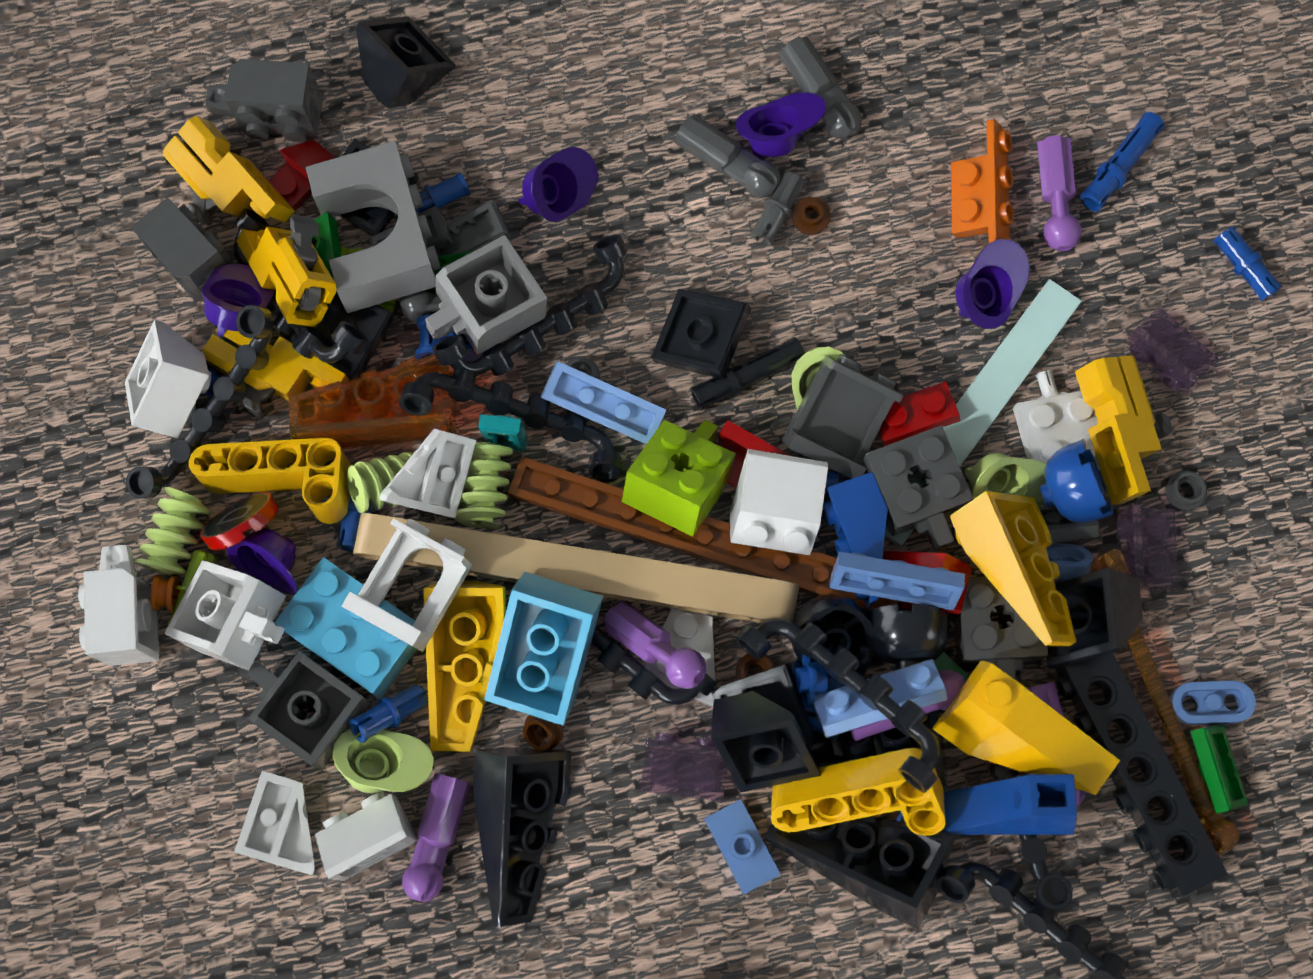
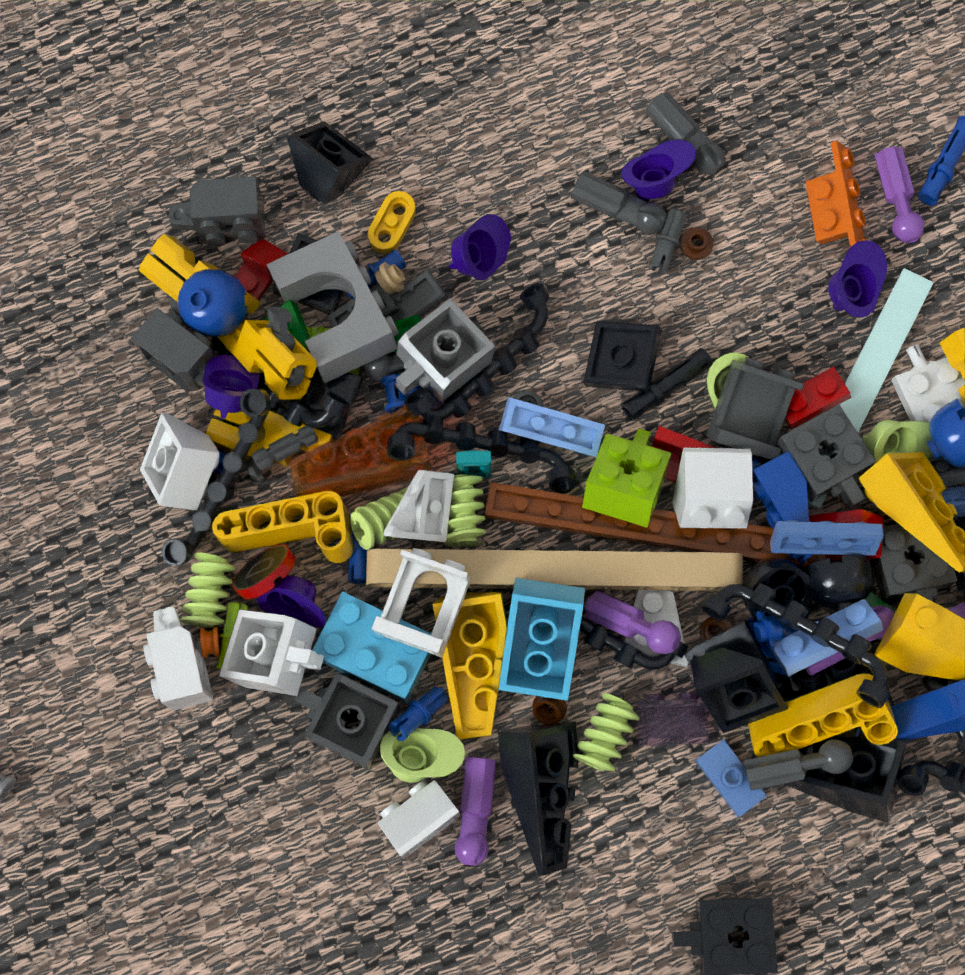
camera: 10 degrees left, 0 degrees up
(233, 201) = (212, 302): none -> blue cylinder
(278, 825) = (341, 821): white wing -> none
(287, 380) = (285, 447): none -> dark grey axle
(446, 204) = (390, 278): none -> tan plate
(459, 141) = (390, 223): none -> yellow plate
(604, 771) = (607, 733): none -> yellowish green piece
(813, 844) = (792, 765): none -> dark grey piece

